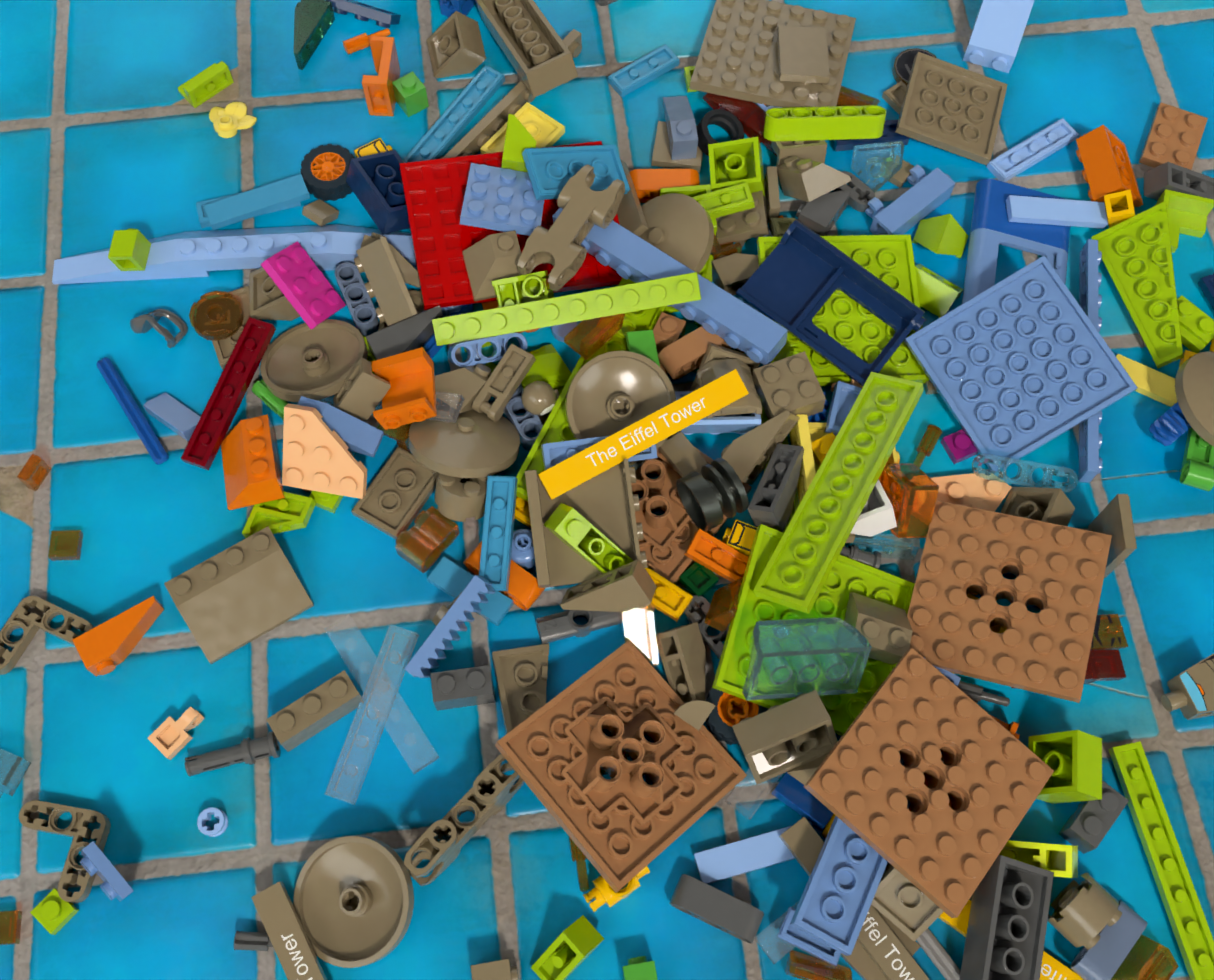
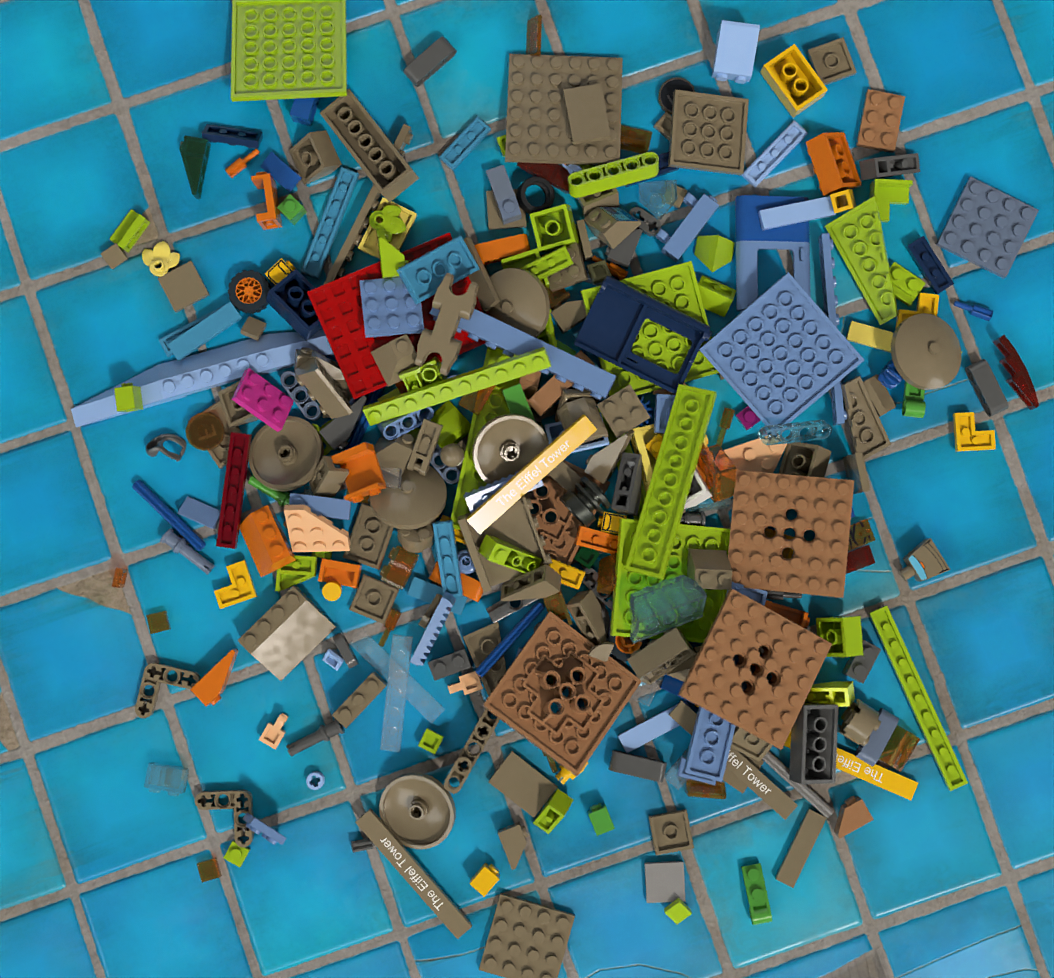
camera: 10 degrees left, 20 degrees up
(132, 450) = (180, 546): none -> sand blue pin
(175, 105) = (114, 256): none -> dark tan tile
(195, 524) = (241, 588): none -> yellow plate
(249, 153) = (183, 286): none -> dark tan tile
(294, 646) = (333, 658): none -> light blue slope
(316, 637) = (345, 650): none -> dark grey beam
(322, 552) = (332, 590): none -> yellow tile
(340, 529) = (341, 572): none -> orange panel
(379, 577) = (374, 599): none -> dark tan tile
(391, 616) = (390, 625): none -> clear orange axle
(404, 798) = (431, 741): none -> lime plate
(411, 55) = (280, 172): none -> blue slope
(484, 723) = (468, 683): none -> light nougat plate
(529, 899) = (523, 784): none -> dark tan tile
(531, 119) = (390, 223): none -> lime plate
(559, 670) = (509, 639): none -> blue axle
(1068, 73) = (793, 80): none -> yellow brick
(1116, 67) = (832, 61): none -> dark tan plate
(1125, 469) = (864, 423): none -> dark tan wing
(1143, 453) = (879, 395): none -> dark tan panel

